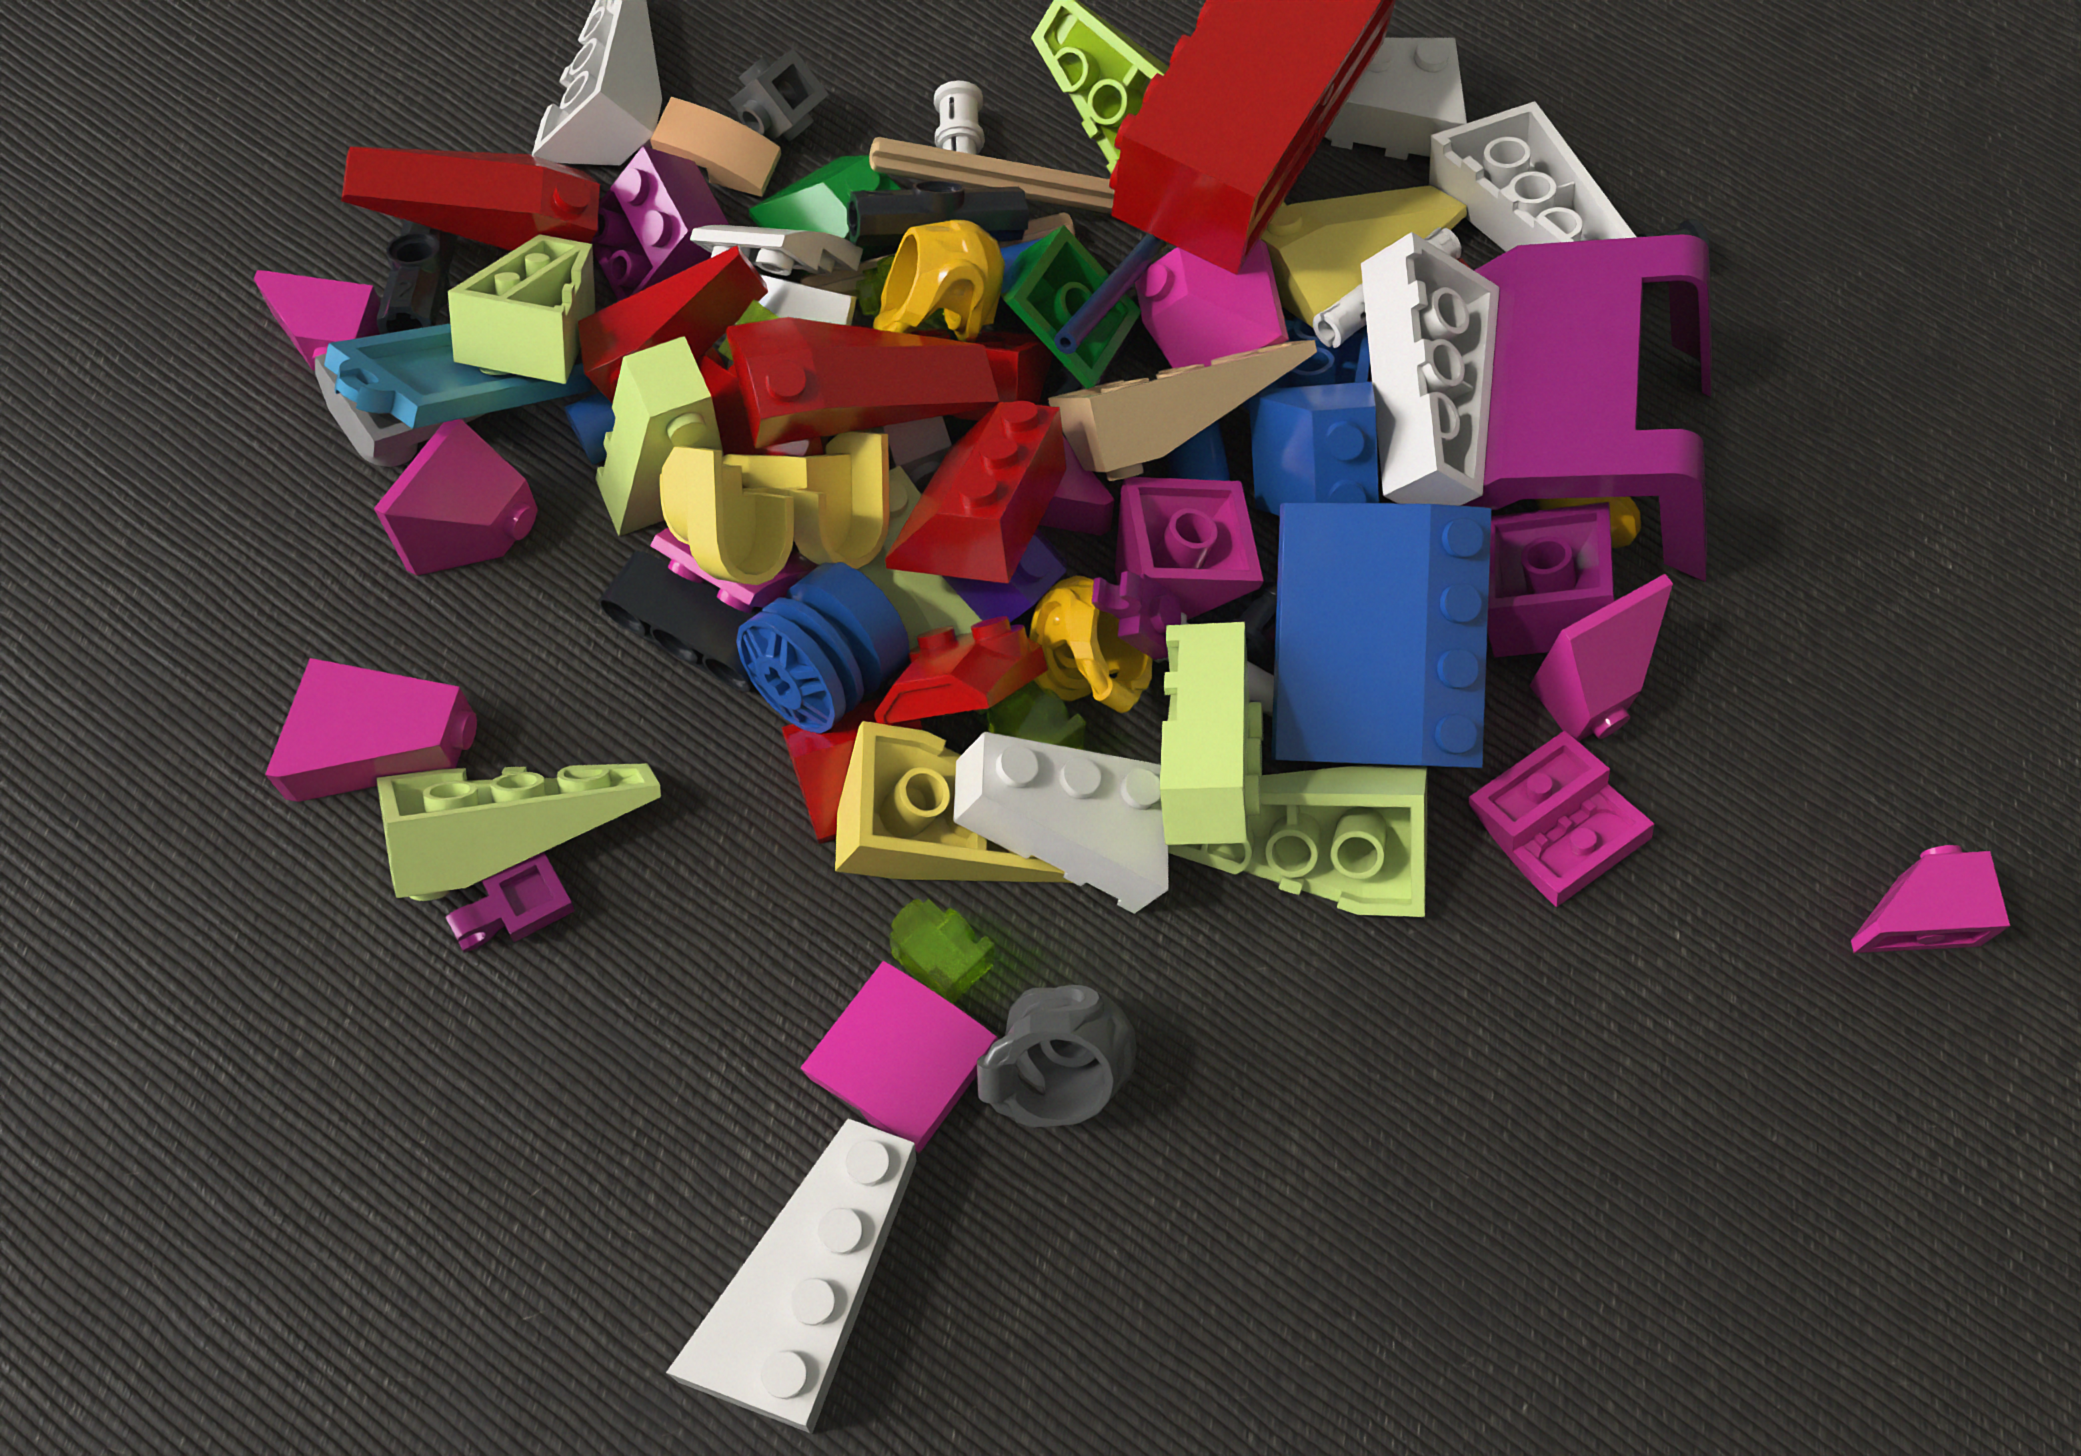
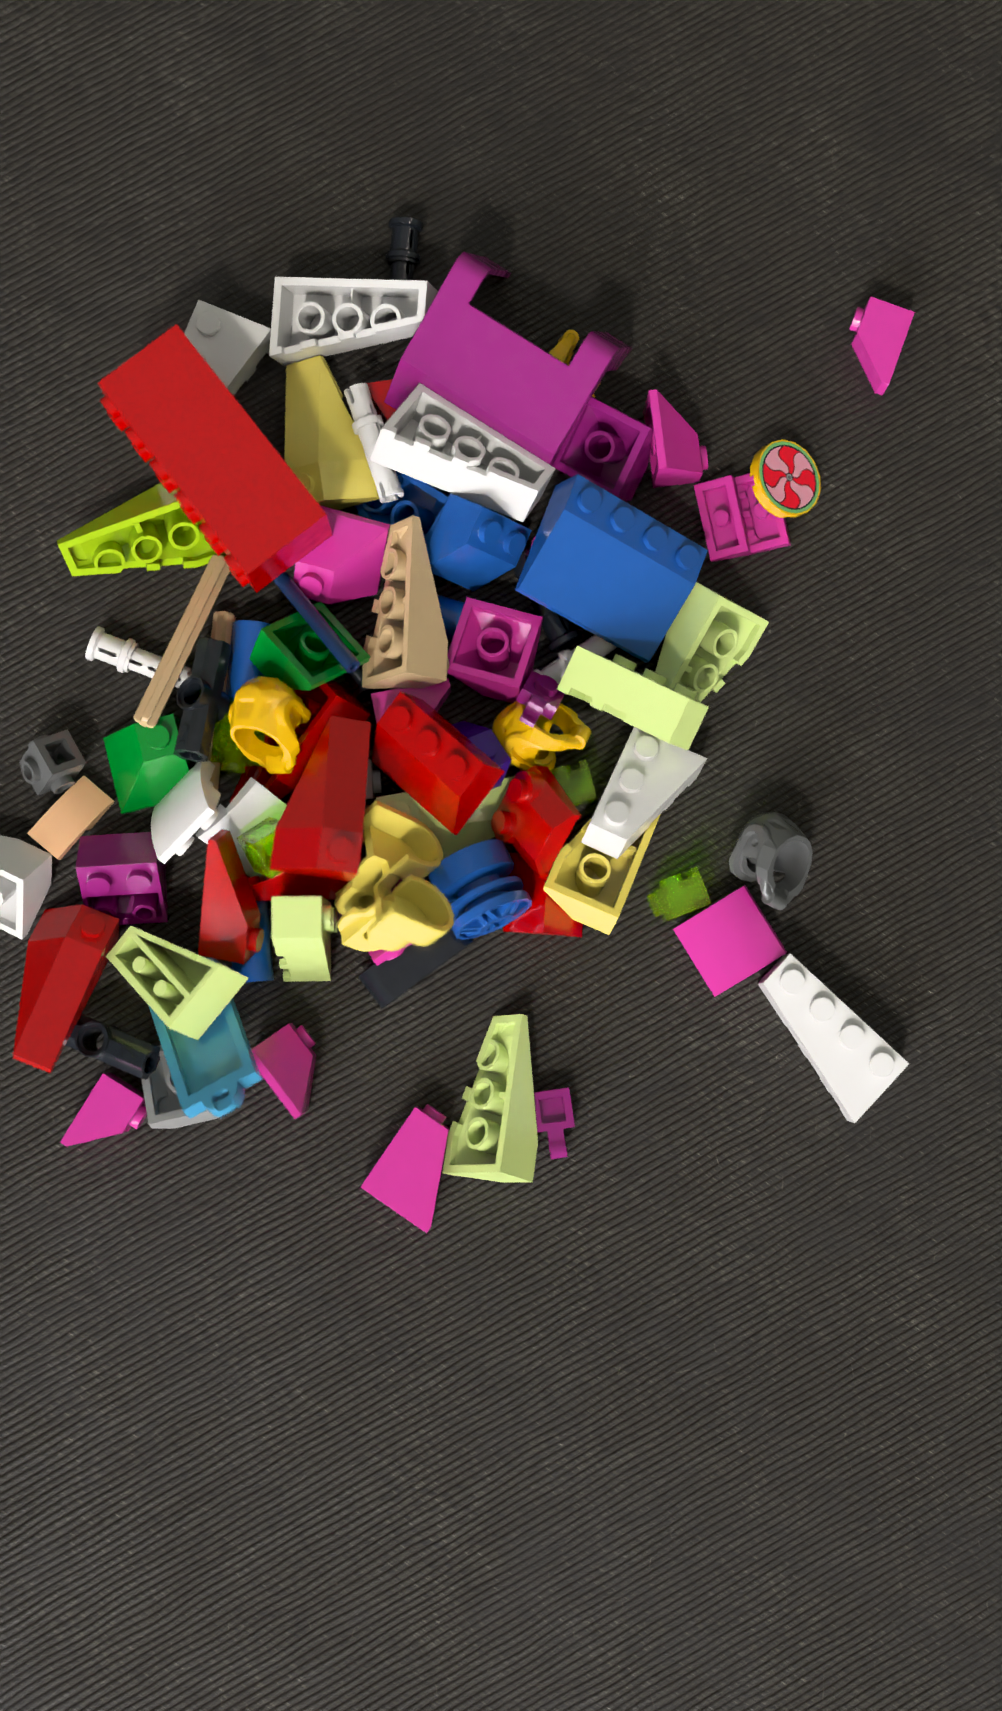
camera: 65 degrees left, 20 degrees up
(1648, 847) = (785, 479): none -> tile

